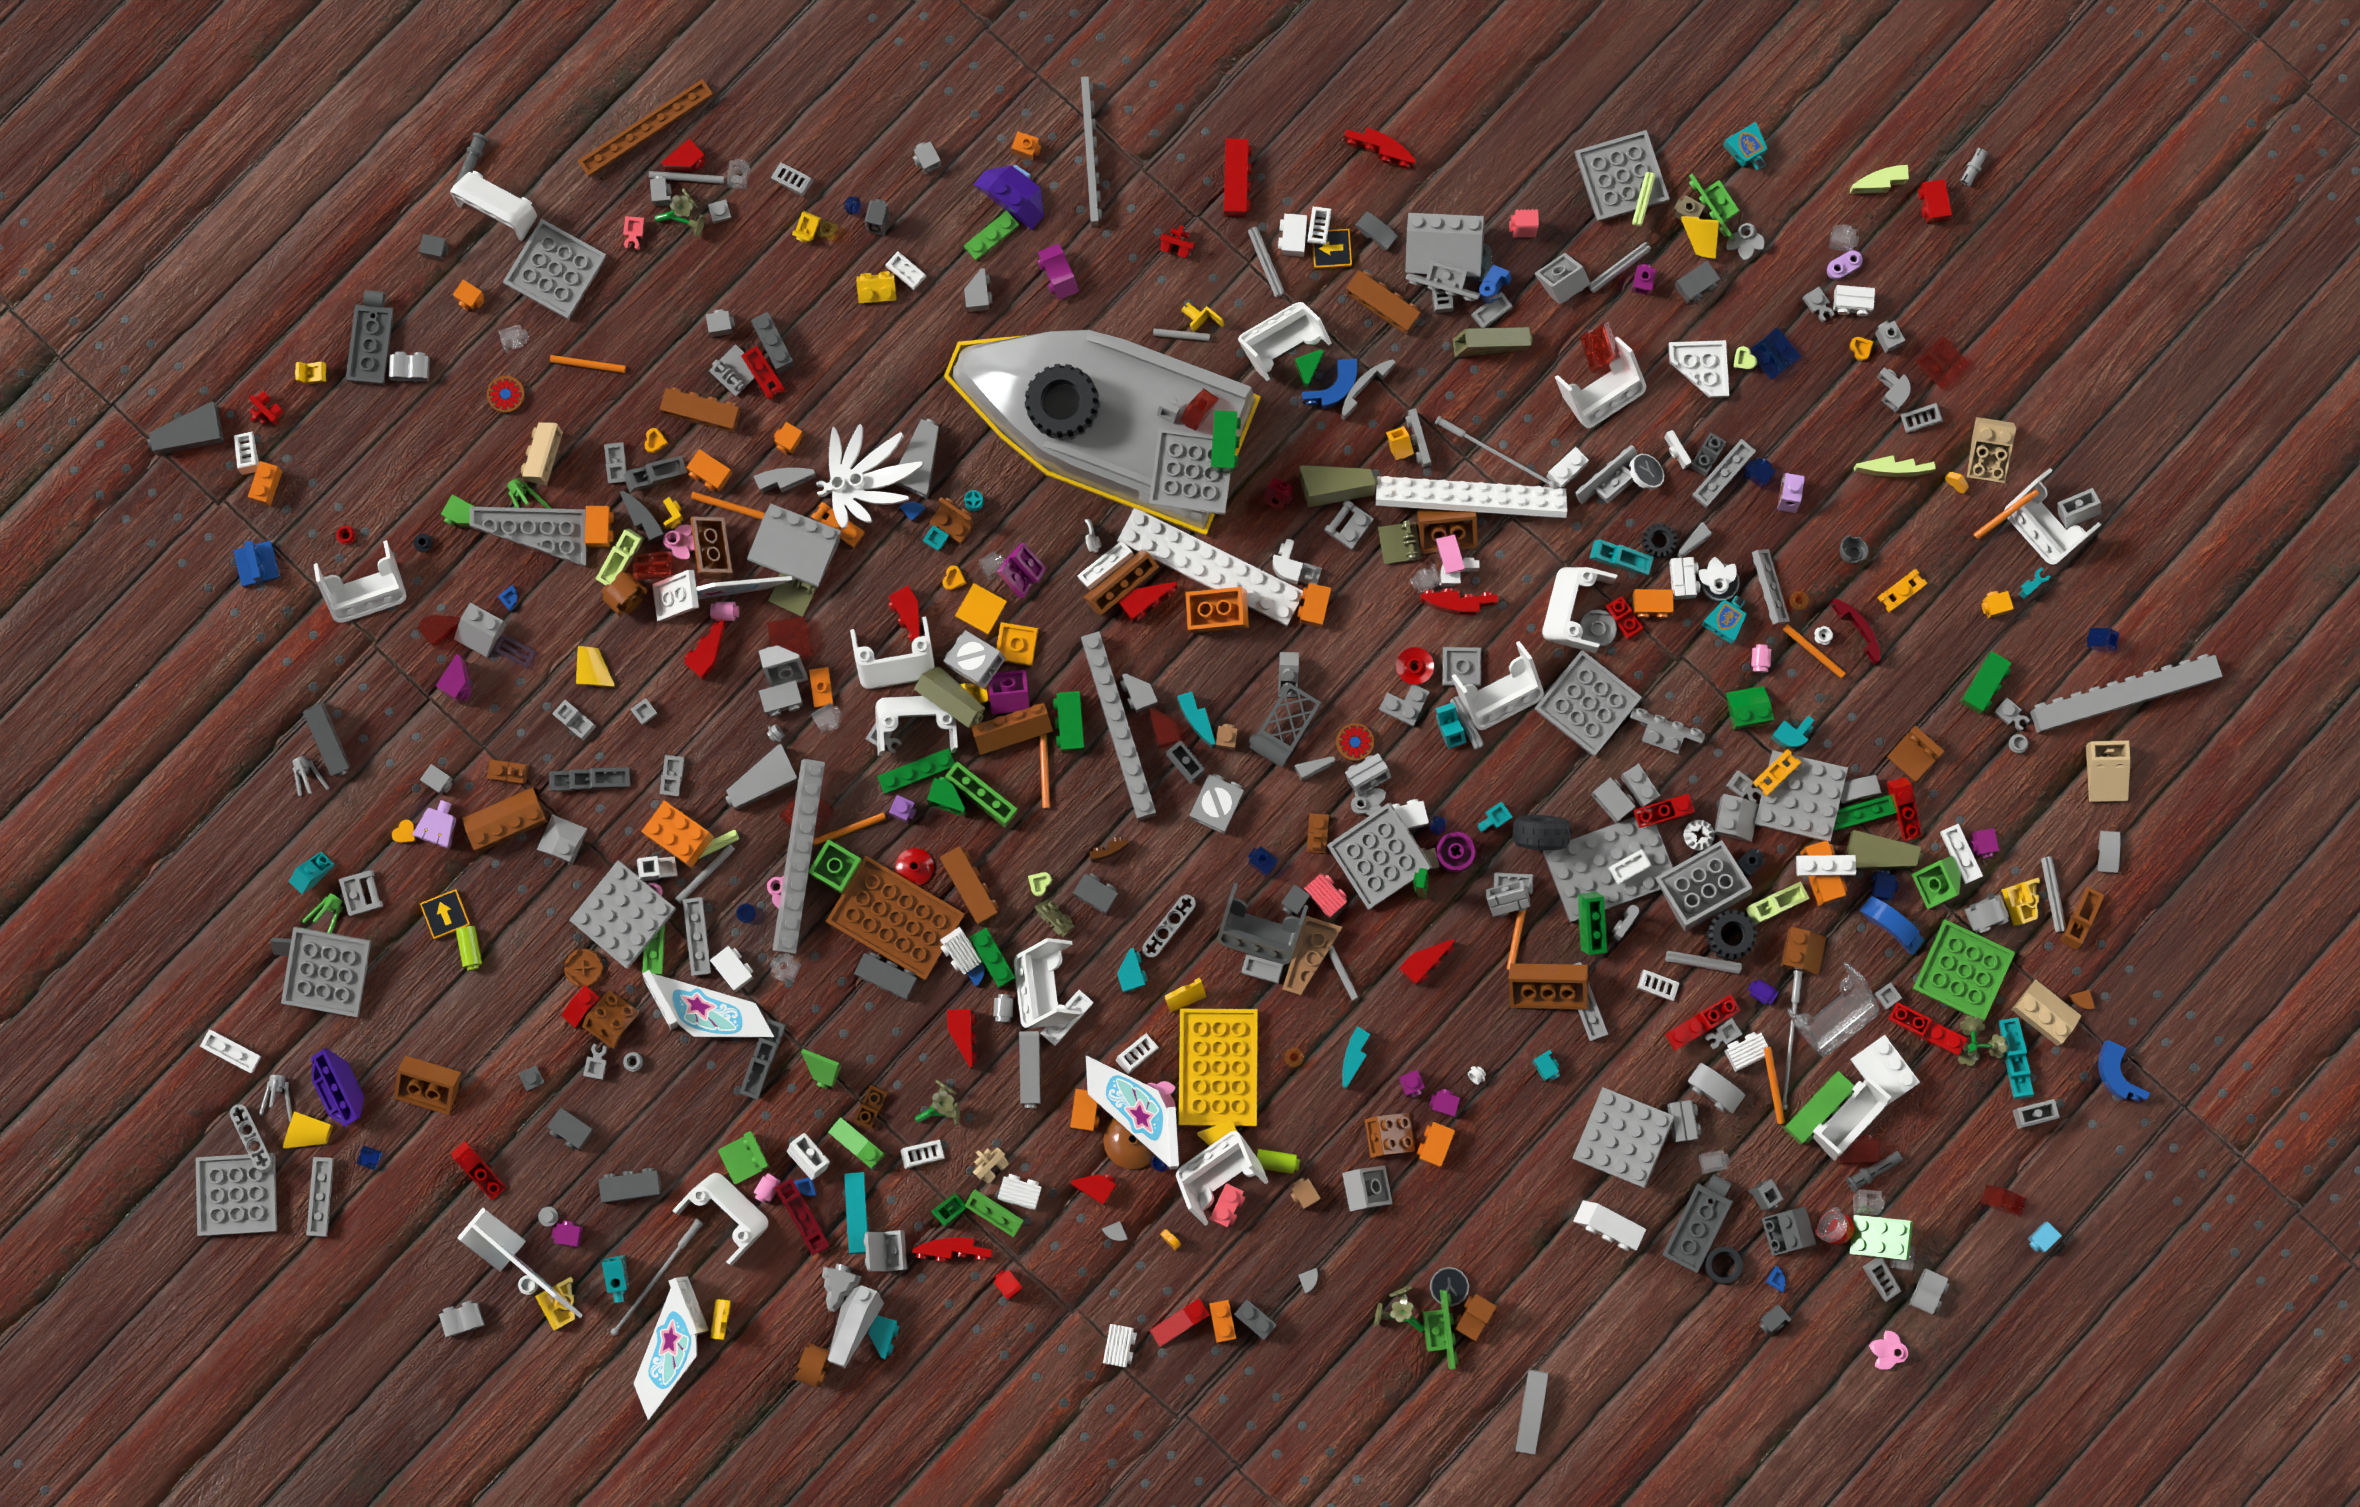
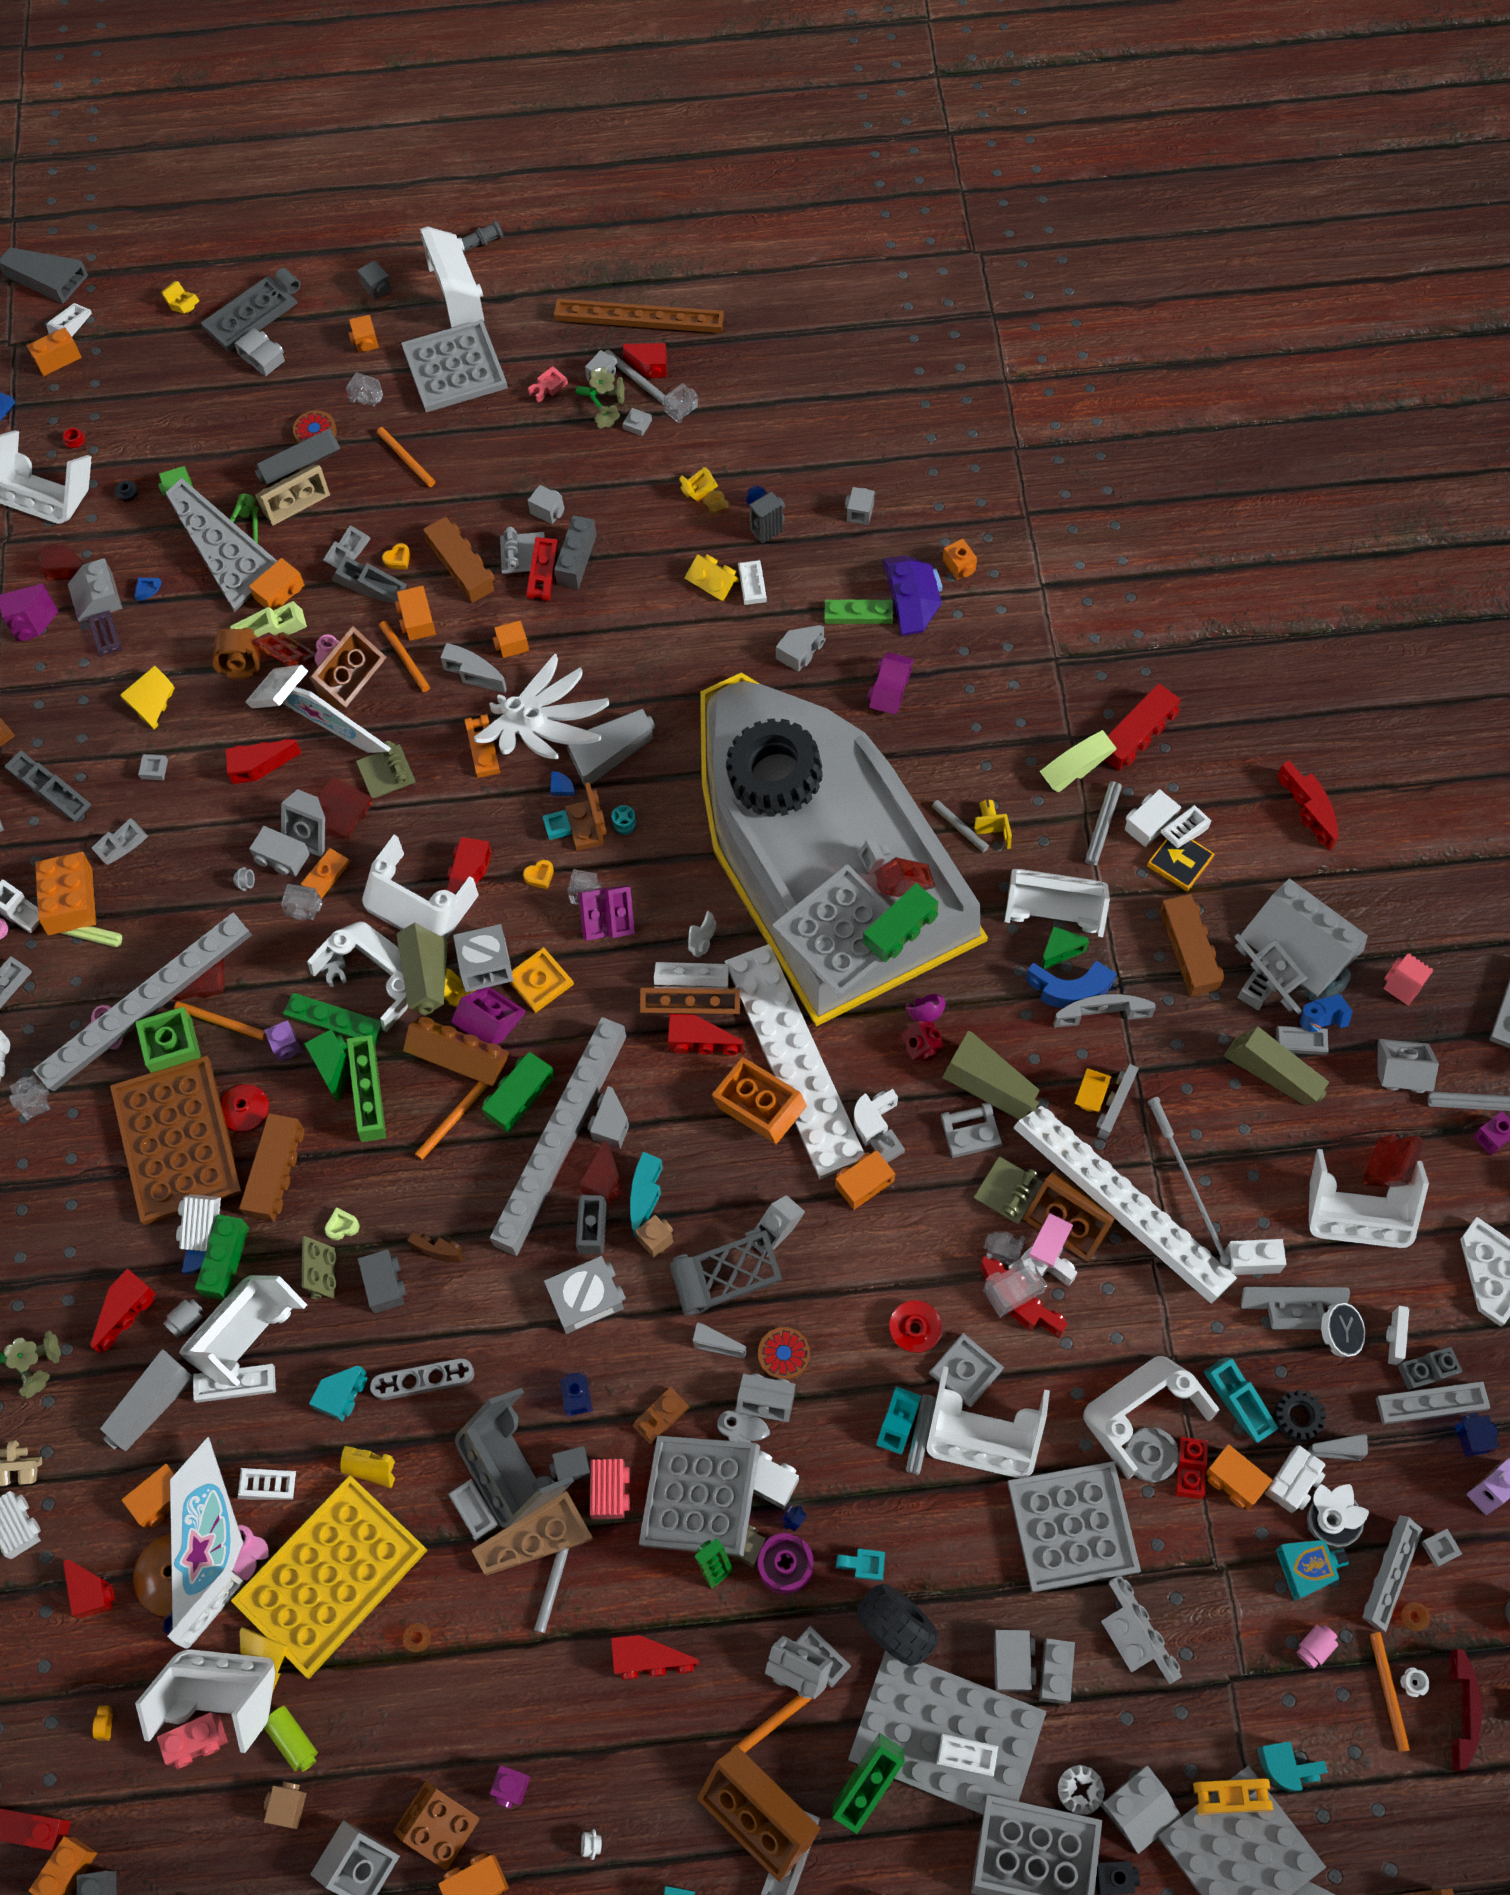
camera: 45 degrees right, 15 degrees down
(260, 402) = (113, 299): red hips -> none
(523, 424) = (297, 457): none -> dark grey slope
(574, 720) = (91, 727): light grey slope -> none
(642, 518) = (319, 607): dark grey slope -> none
(673, 508) = (352, 618): yellow bracket -> none
(705, 873) = (57, 952): light grey bar -> none
(724, 610) = (308, 738): bright pink brick -> none
(746, 913) = (52, 1017): clear blue plate -> none
(763, 779) = (188, 908): light grey slope -> none
(794, 545) = (423, 728): light grey slope -> none
(807, 181) = (727, 453): light grey slope -> none
(886, 975) = (110, 1186): dark grey brick -> none
(981, 609) = (537, 921): light orange tile -> none
(1091, 142) = (1013, 610): light grey plate -> none
(1115, 1232) = (60, 1660): light grey tile -> none
(1168, 241) = (1022, 734): red hips -> none
(1219, 233) = (1078, 761): none -> yellowish green slope
(1262, 471) = (927, 1008): none -> magenta hair
(1354, 1055) = (477, 1695): teal slope -> none
(1376, 229) = (1242, 874): dark grey slope -> none
(1407, 709) = (870, 1367): light grey plate -> none
(1444, 1103) = (525, 1844): magenta brick -> none
(1453, 599) = (1014, 1286): none -> clear brick
(1622, 926) = (897, 1819): light grey plate -> none
(1664, 811) = (1060, 1725): red slope -> none
(1742, 785) = (1178, 1776): light grey plate -> none
(1749, 708) = (1259, 1692): green slope -> none
(1785, 551) = (1441, 1548): none -> light grey plate

